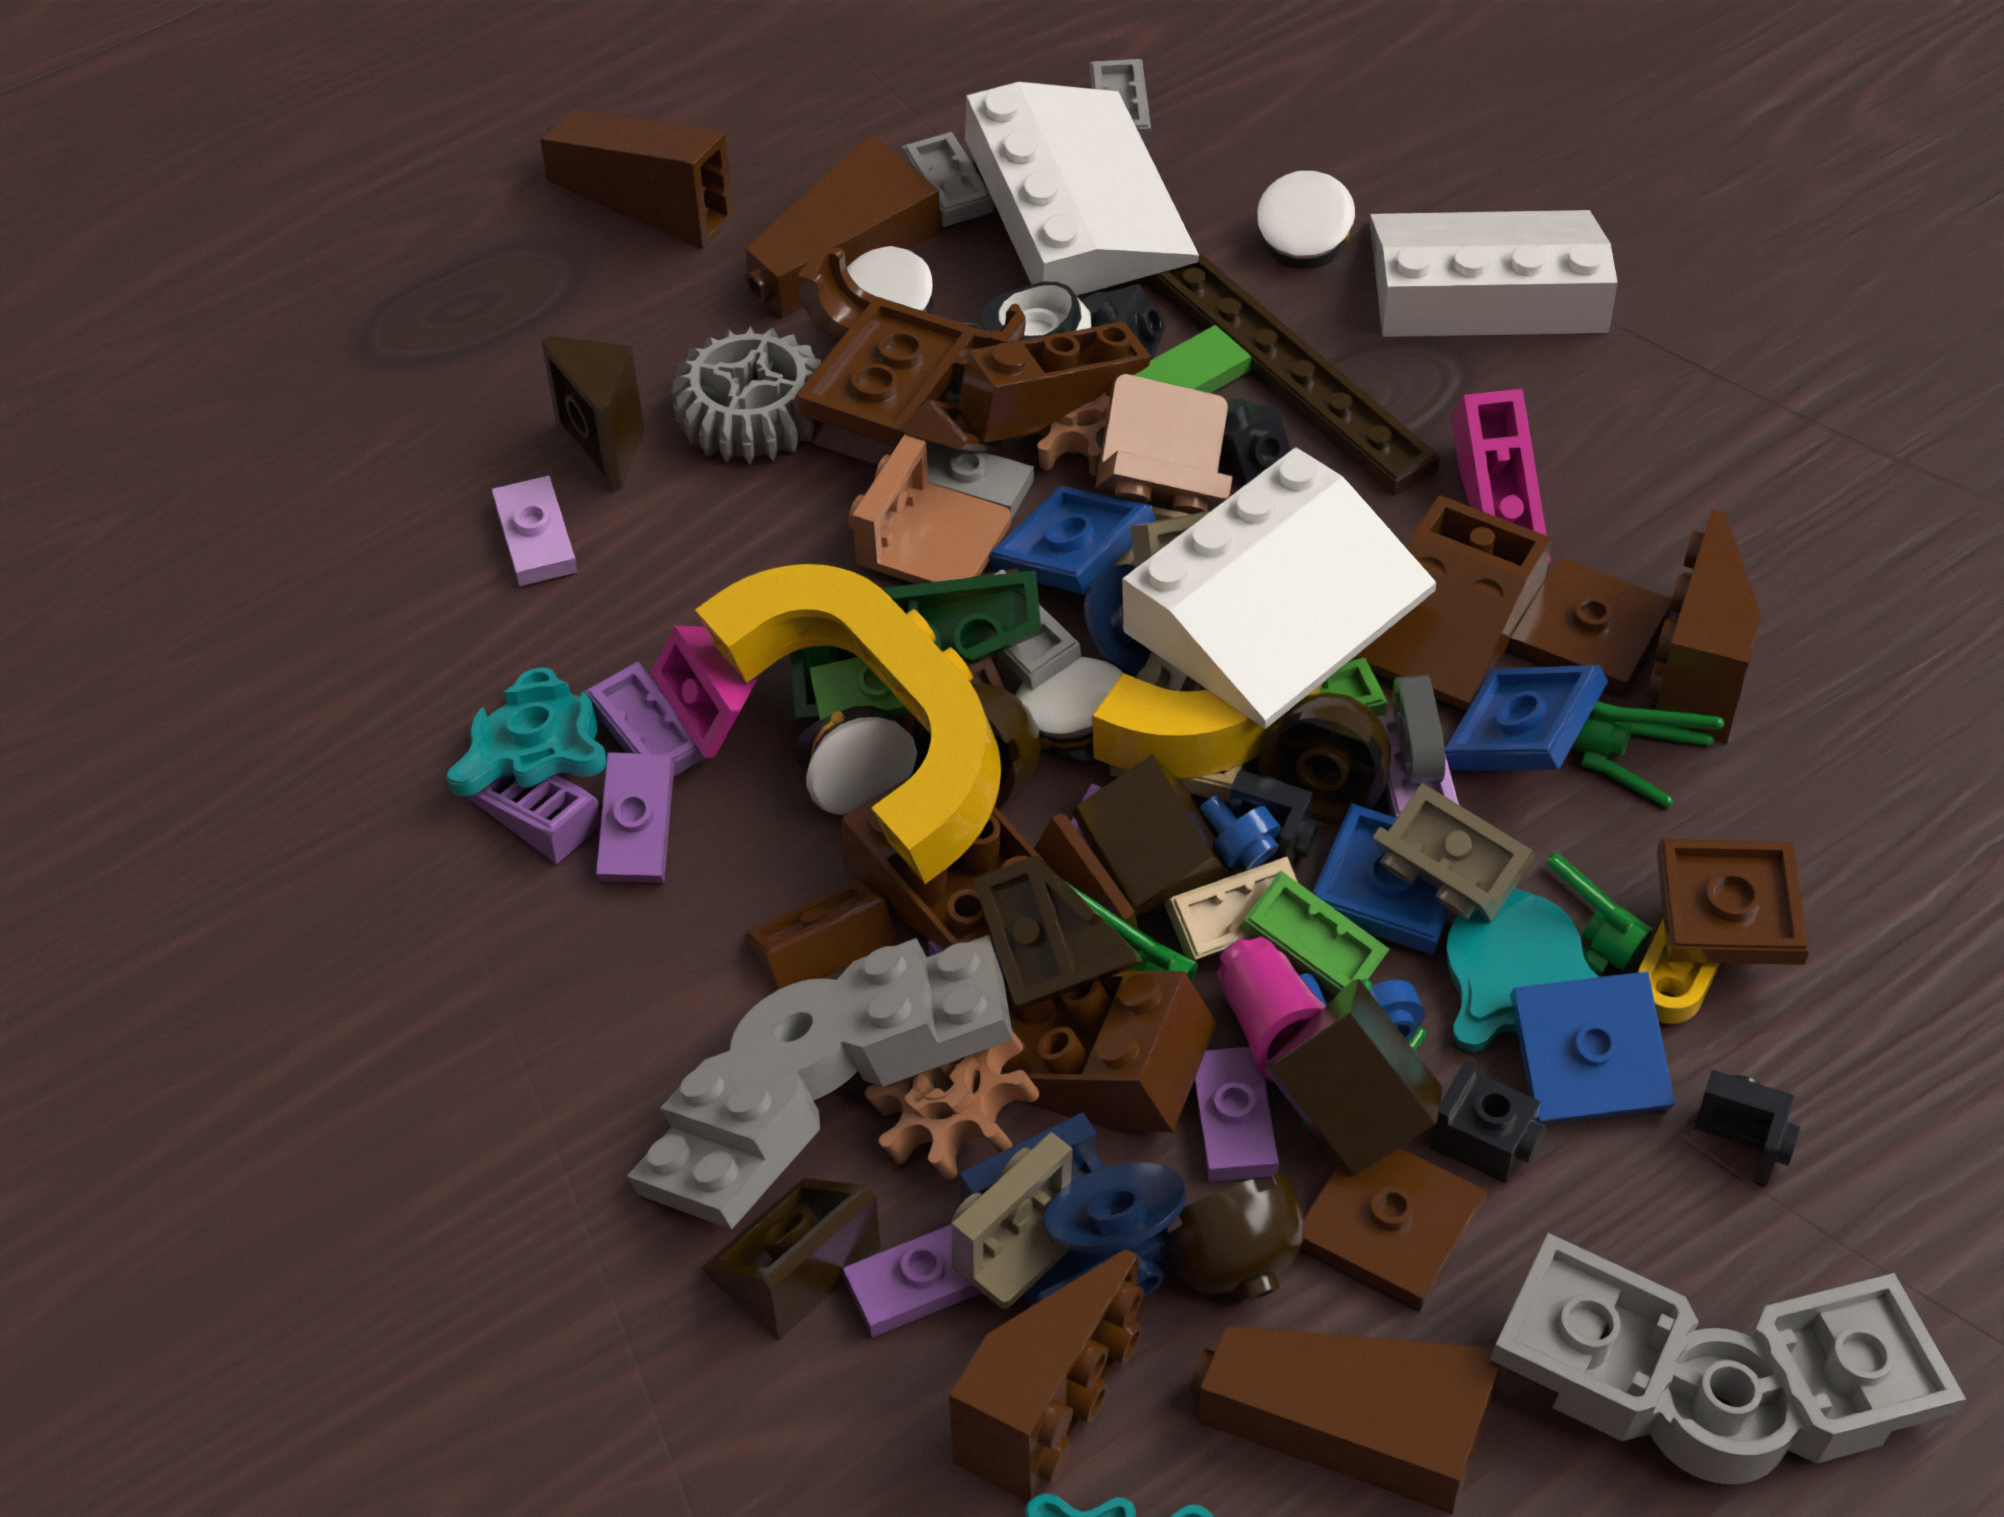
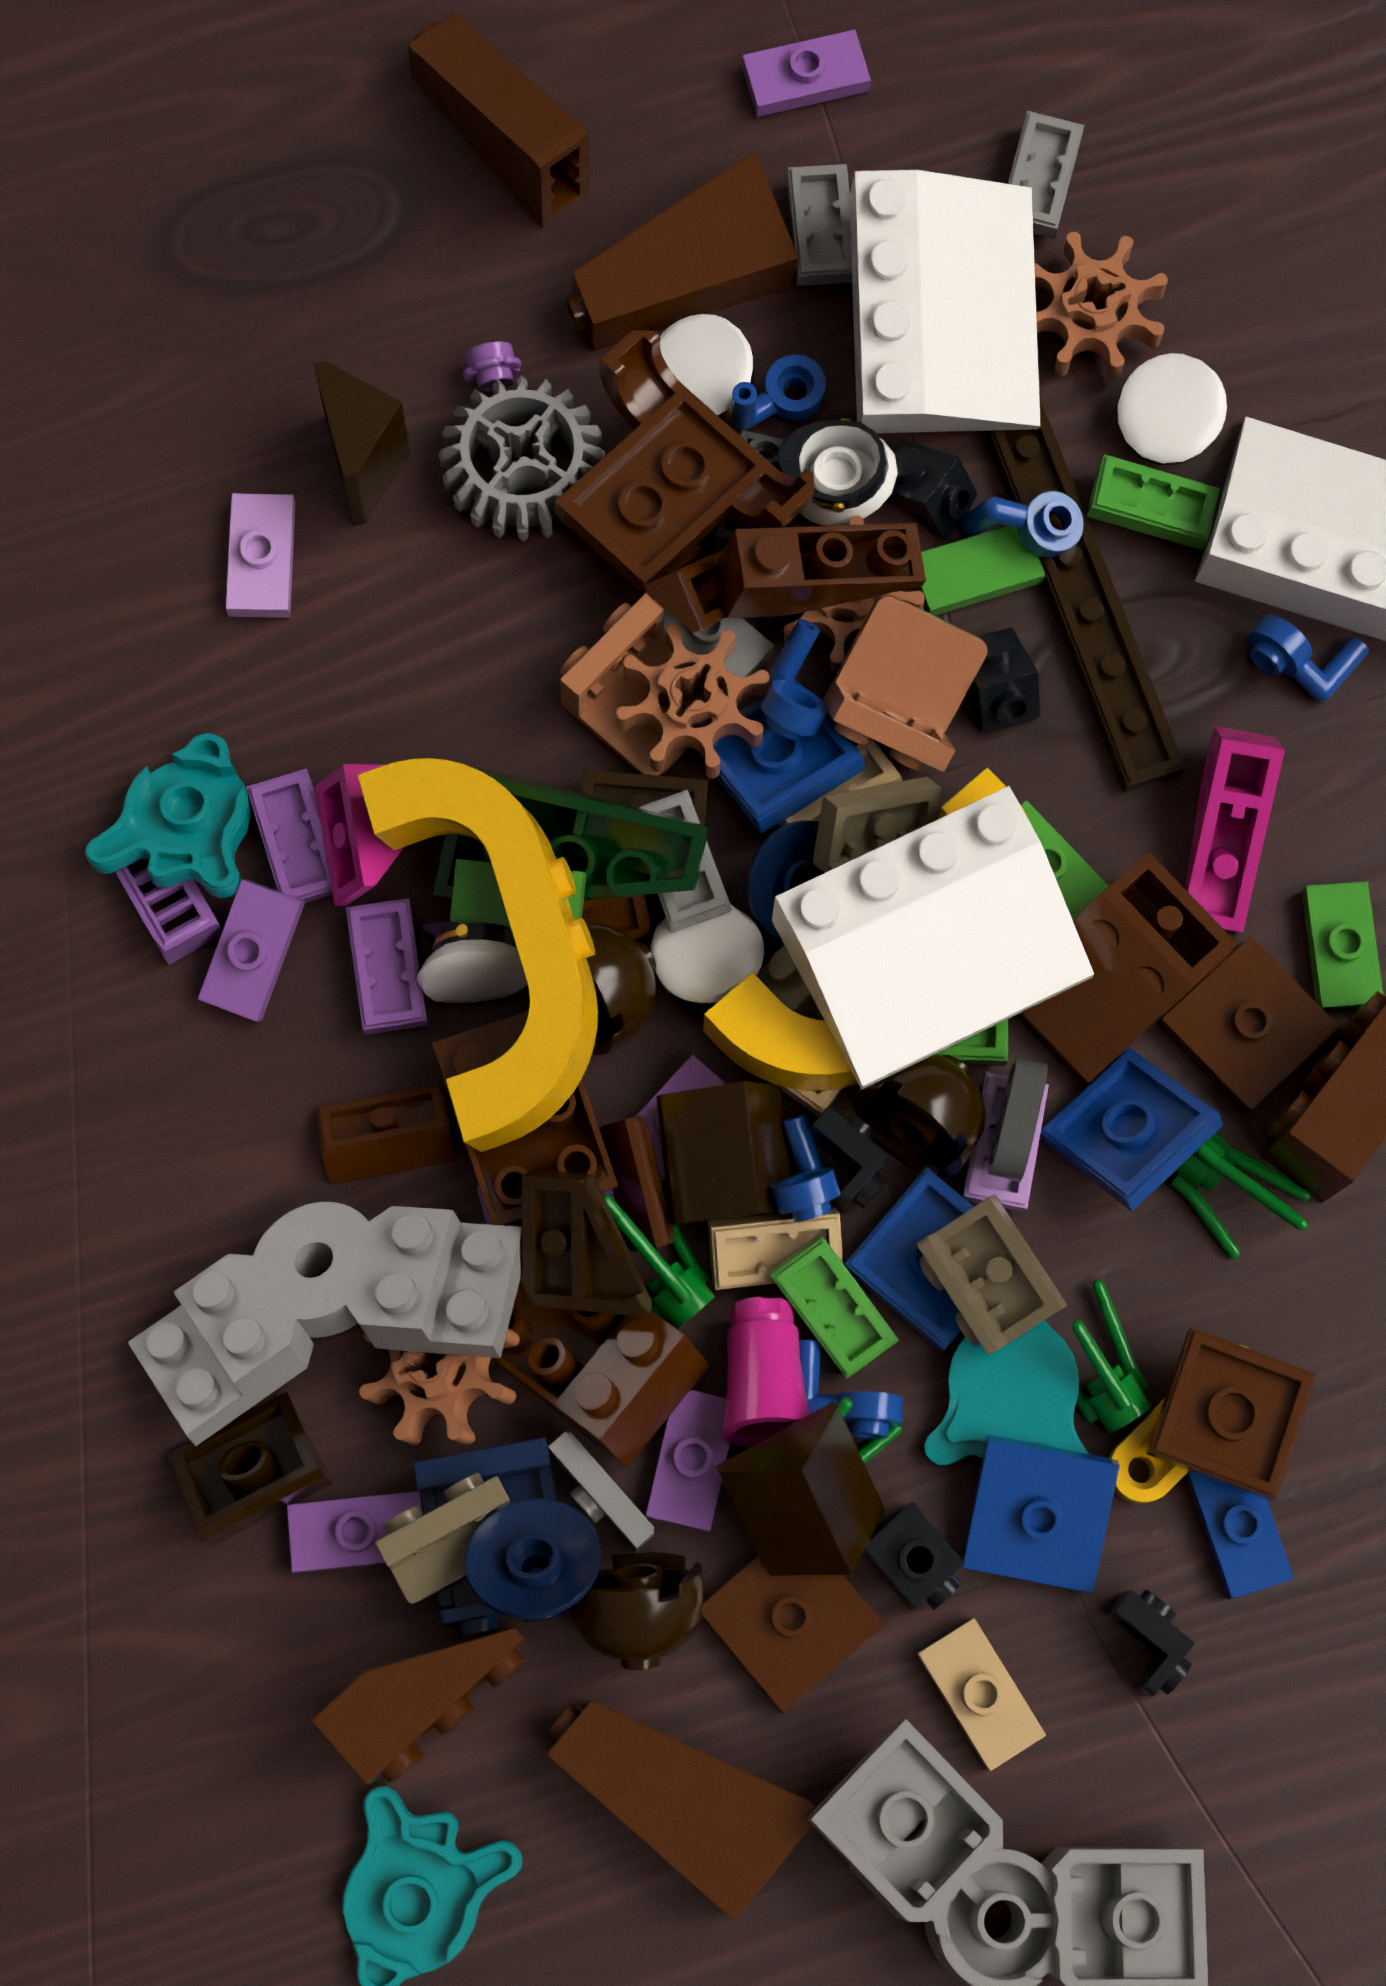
camera: 10 degrees right, 25 degrees up
(692, 334) = (489, 363): none -> medium lavender plate
(771, 798) = (386, 966): none -> medium lavender plate
(890, 91) = (806, 73): none -> medium lavender plate
(963, 291) = (787, 371): none -> blue plate
(978, 511) = (702, 721): none -> nougat gear
(1069, 488) = (789, 706): none -> blue plate
(1132, 1139) = (599, 1493): none -> light grey plate
(1211, 167) = (1090, 302): none -> nougat gear
(1235, 314) = (1031, 521): none -> blue plate
(1320, 284) = (1153, 502): none -> bright green plate
(1483, 350) = (1284, 650): none -> blue plate
(1608, 1223) = (981, 1694): none -> tan plate
(1640, 542) = (1341, 945): none -> bright green plate
(1786, 1014) = (1239, 1536): none -> blue plate

